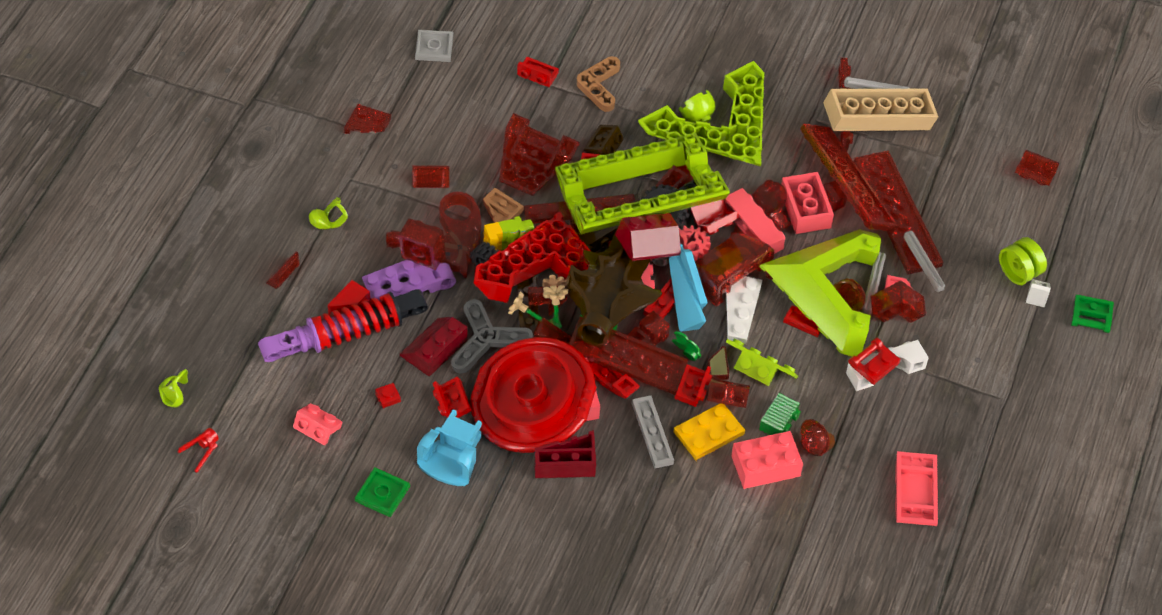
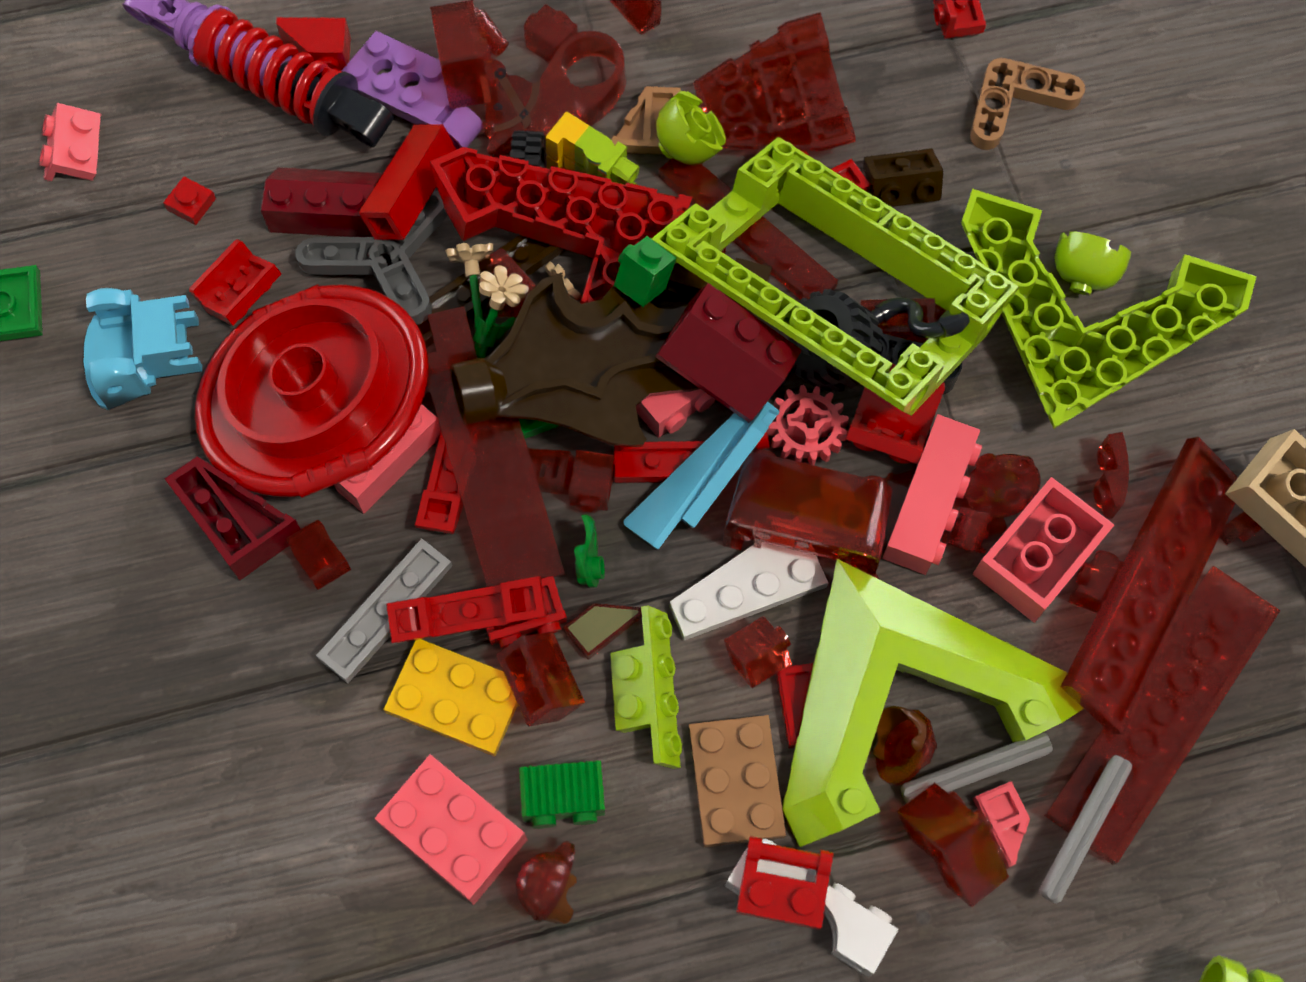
camera: 55 degrees right, 15 degrees up
(425, 213) = (547, 31): none -> clear red brick
(460, 304) = (406, 183): none -> red brick
(526, 195) = (687, 131): none -> lime cylinder
(592, 238) = (644, 270): none -> green brick
(610, 440) = (317, 554): none -> clear red bracket
(681, 396) = (466, 610): none -> red slope
(697, 164) = (946, 325): none -> black animal
(774, 317) = (758, 651): none -> clear red brick
(792, 160) = (1113, 484): none -> clear red slope
(818, 360) = (736, 780): none -> medium nougat plate

